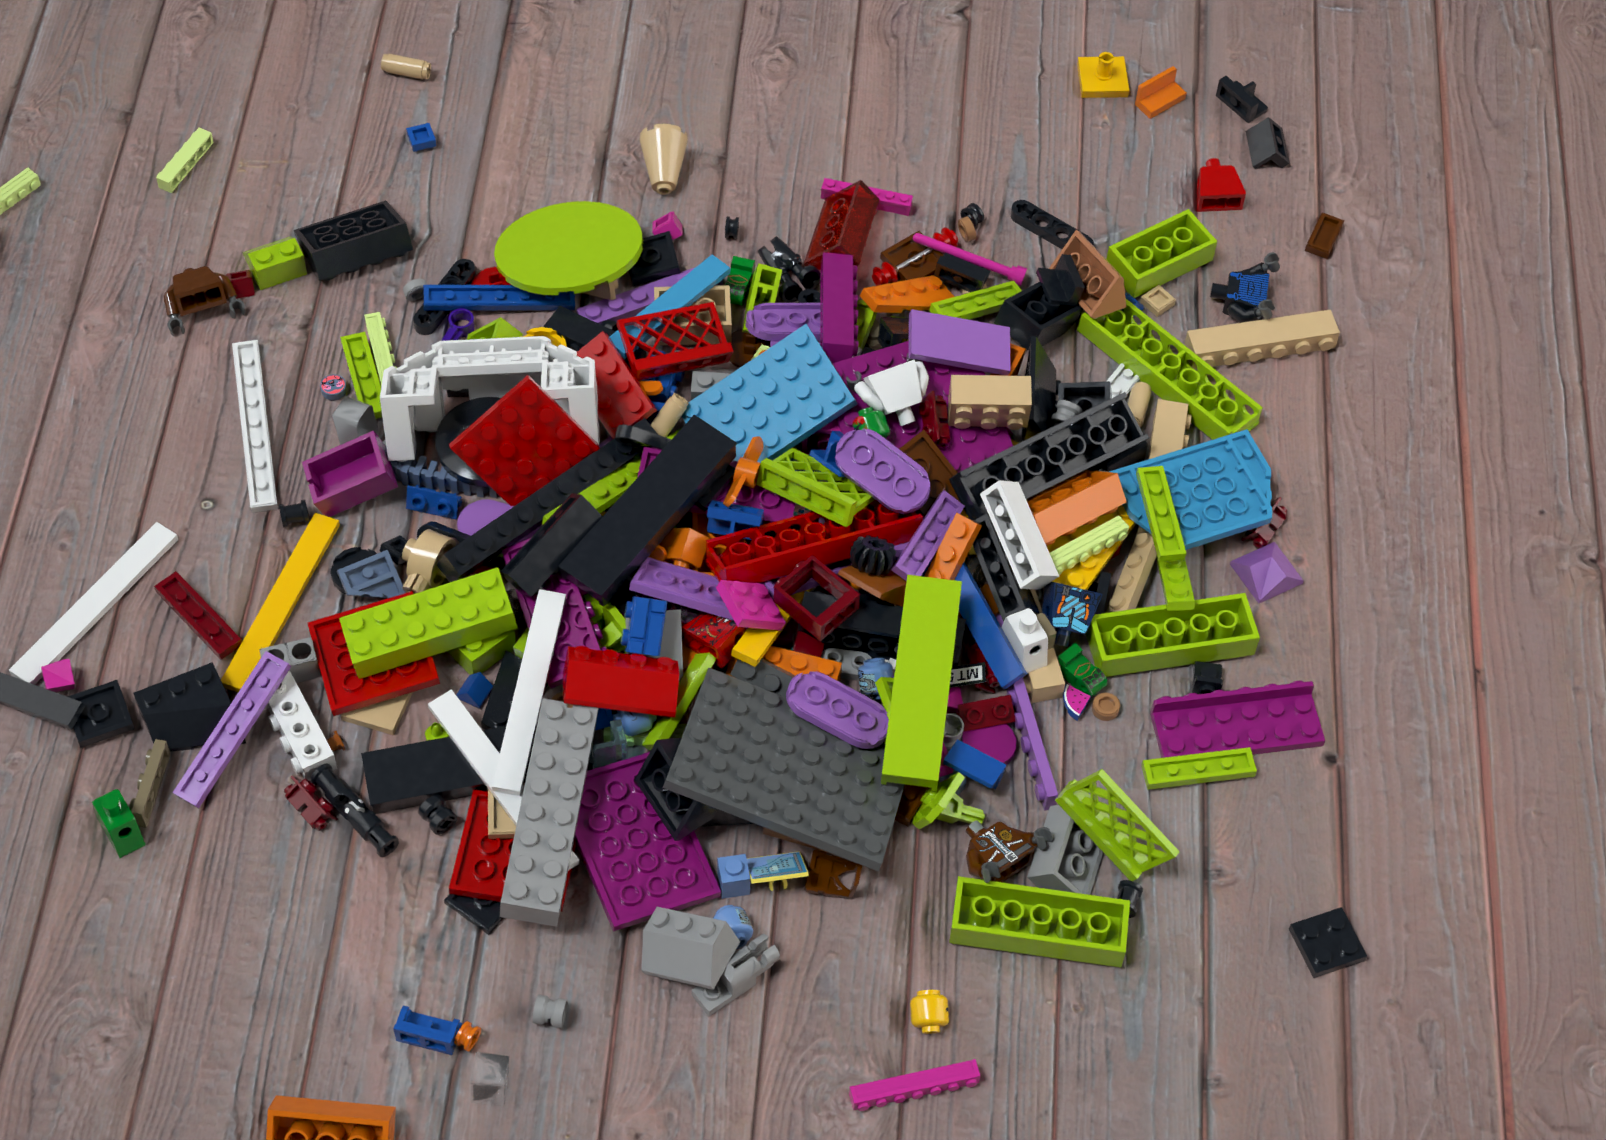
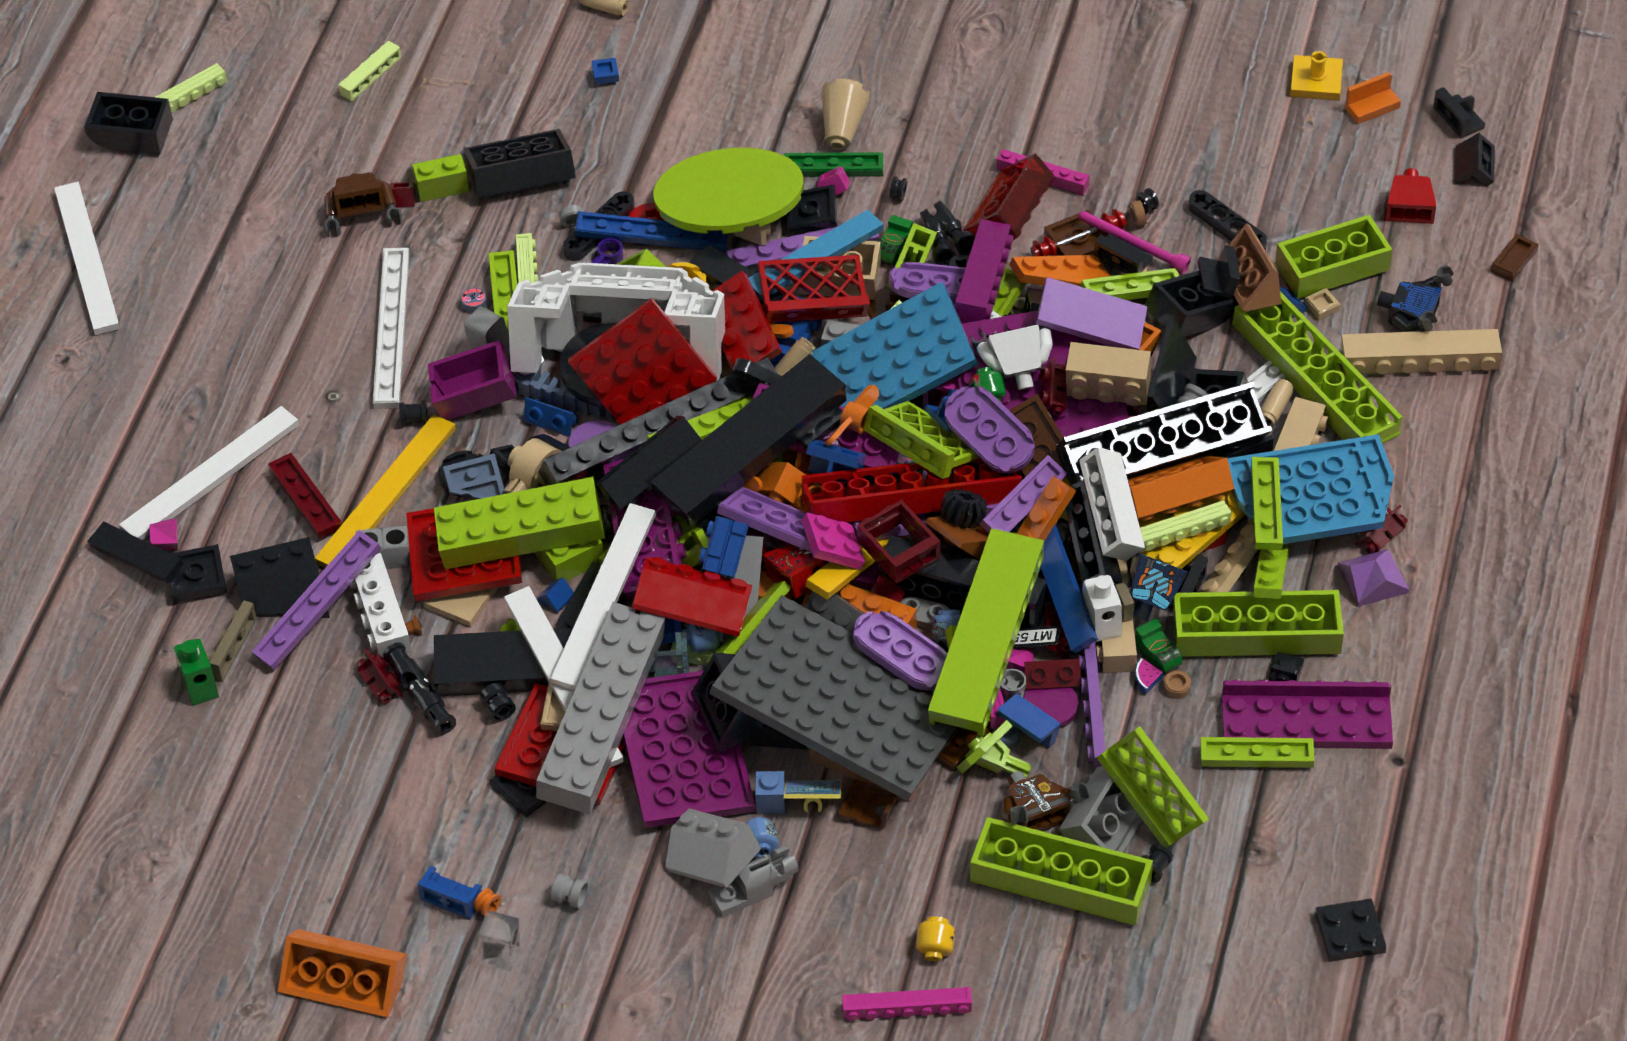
camera: 15 degrees right, 5 degrees down
(684, 207) = (854, 164): none -> green tile

